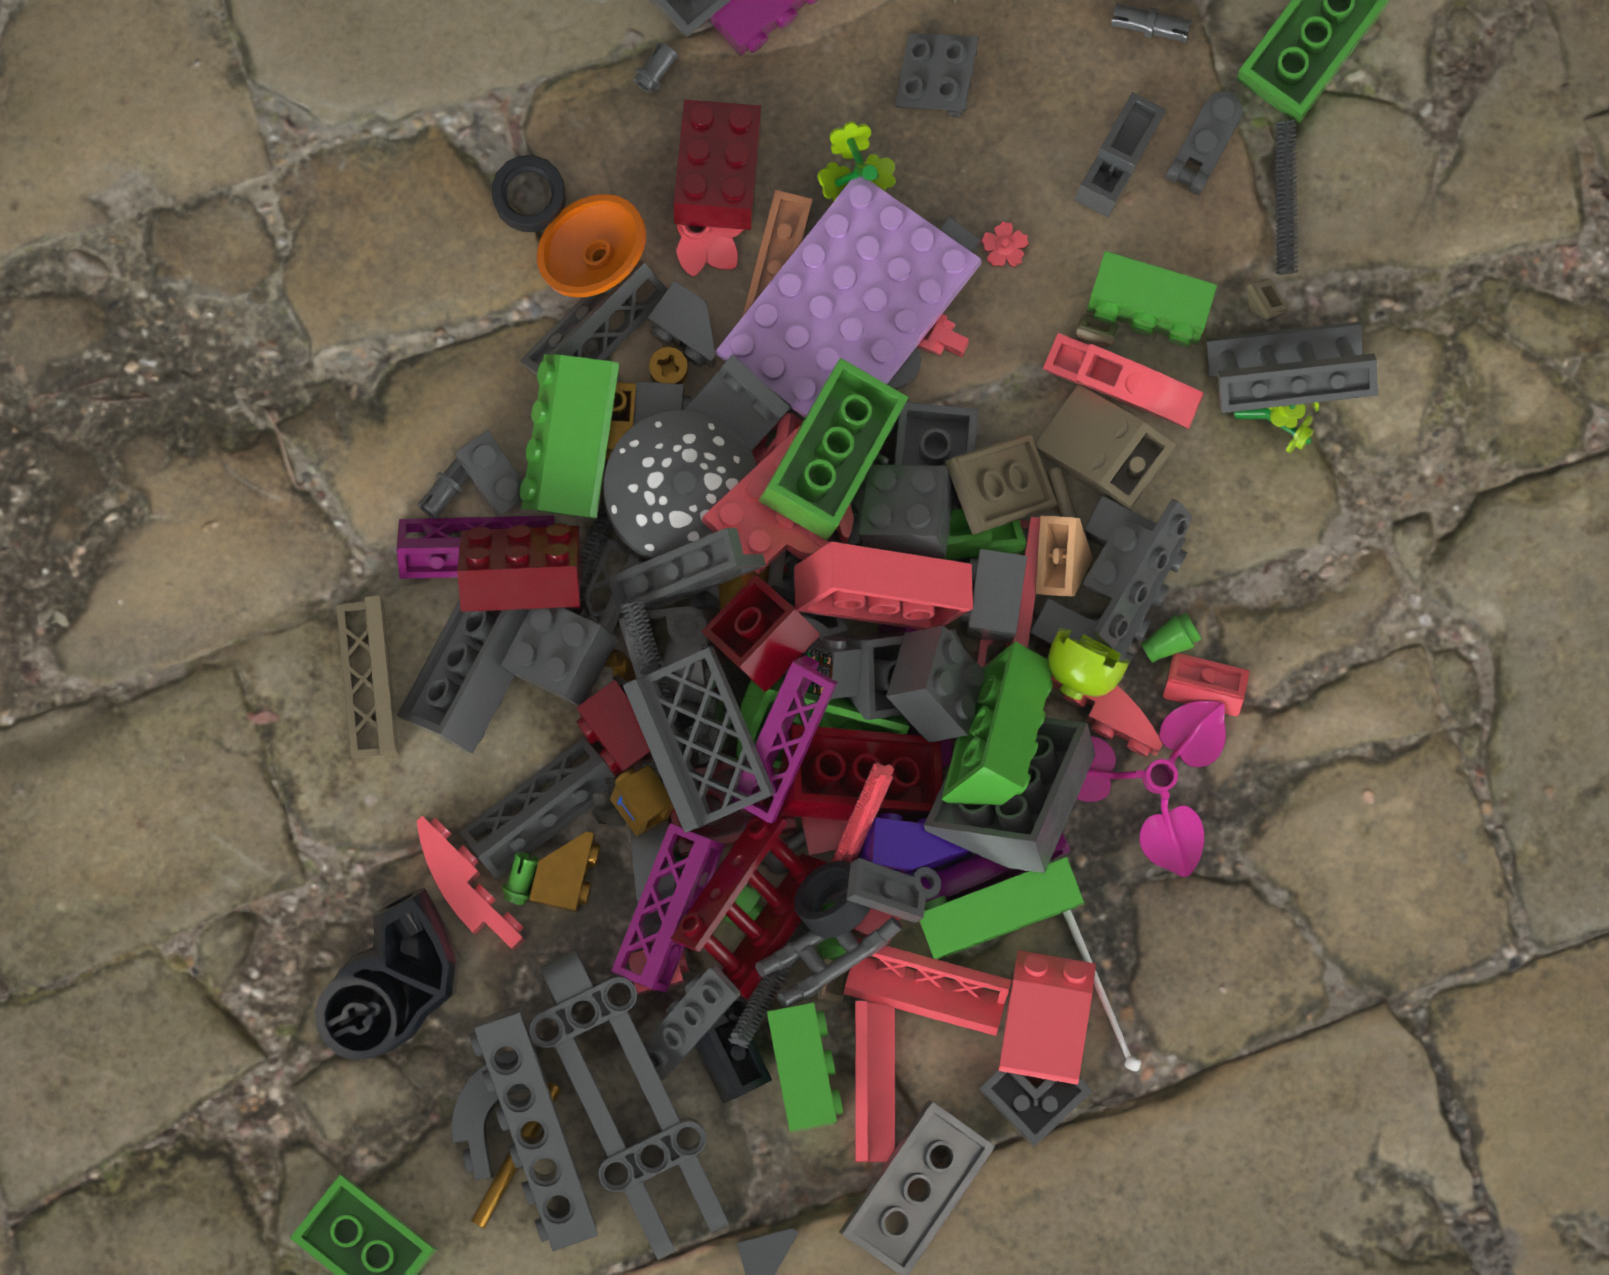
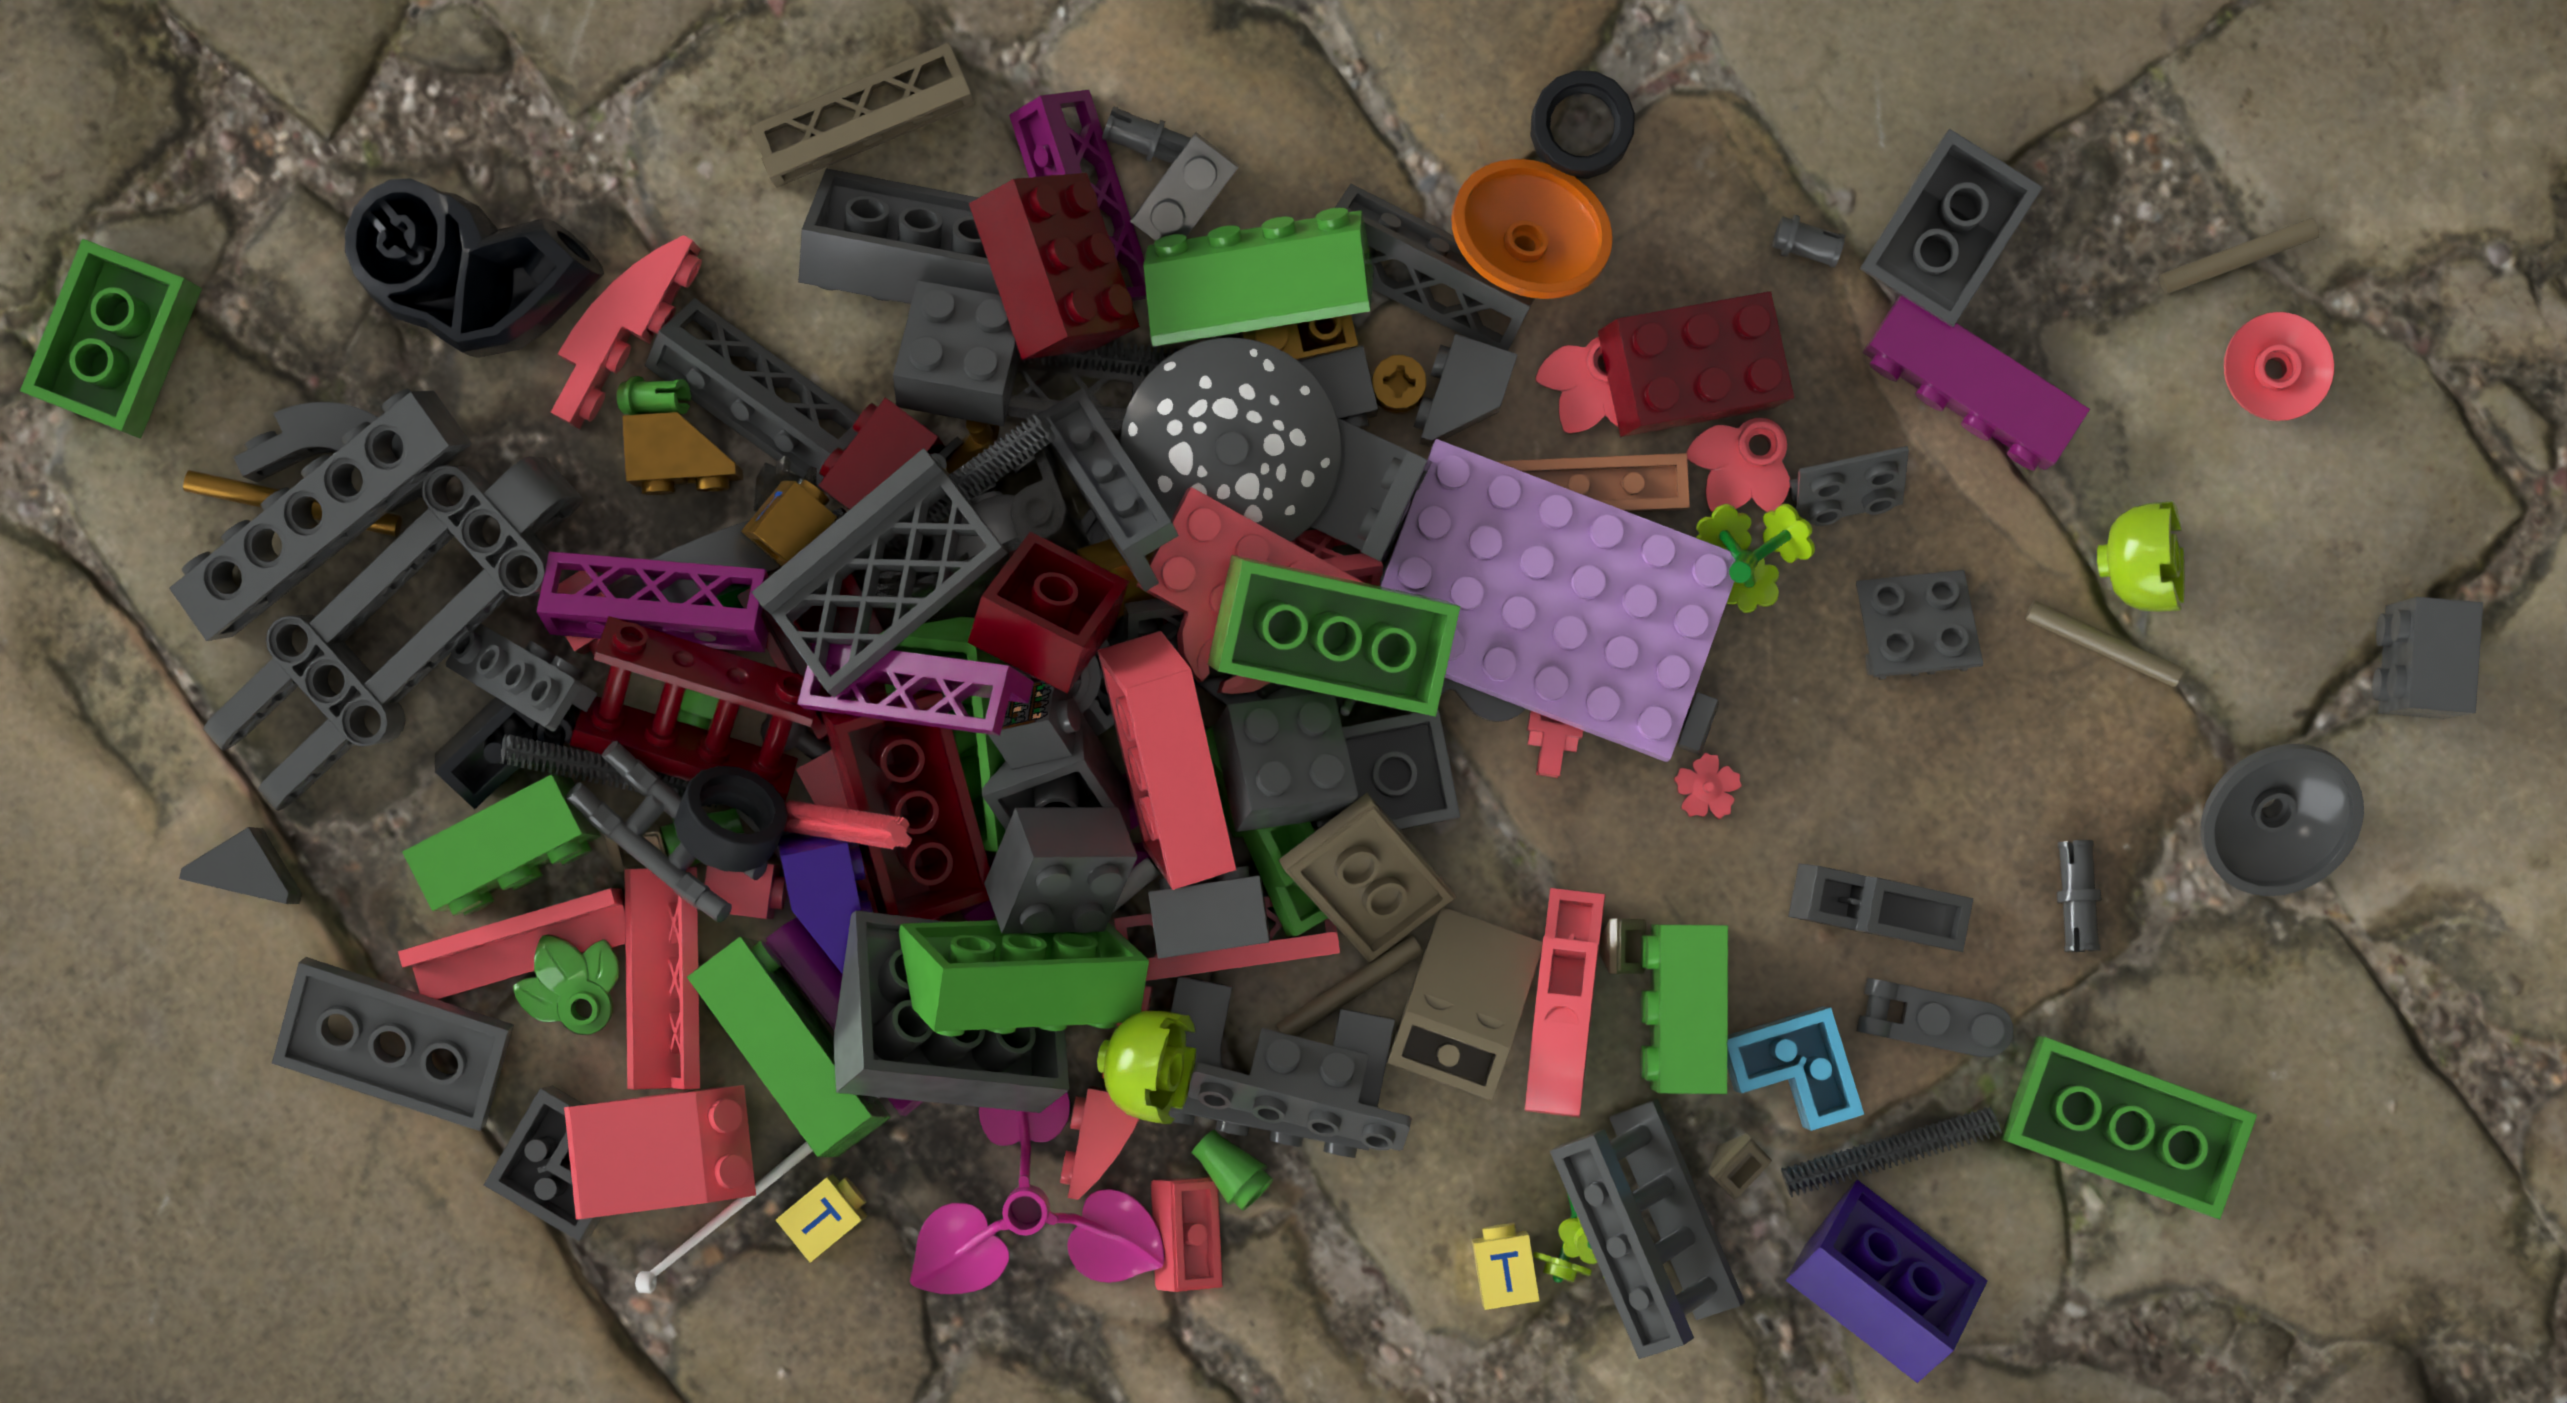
camera: 75 degrees right, 5 degrees up
(796, 162) = (1736, 471): none -> coral plate
(831, 88) = (1850, 486): none -> dark grey hinge
(891, 890) = (756, 893): dark grey hinge -> none
(907, 1057) = (564, 978): none -> bright green plate
(1061, 556) = (1292, 989): light nougat slope -> none
(1123, 924) = (823, 1216): none -> light yellow brick
(1211, 228) = (1805, 1052): none -> medium azure brick
(1290, 474) = (1505, 1267): none -> light yellow brick
(1373, 224) = (1888, 1282): none -> dark purple slope

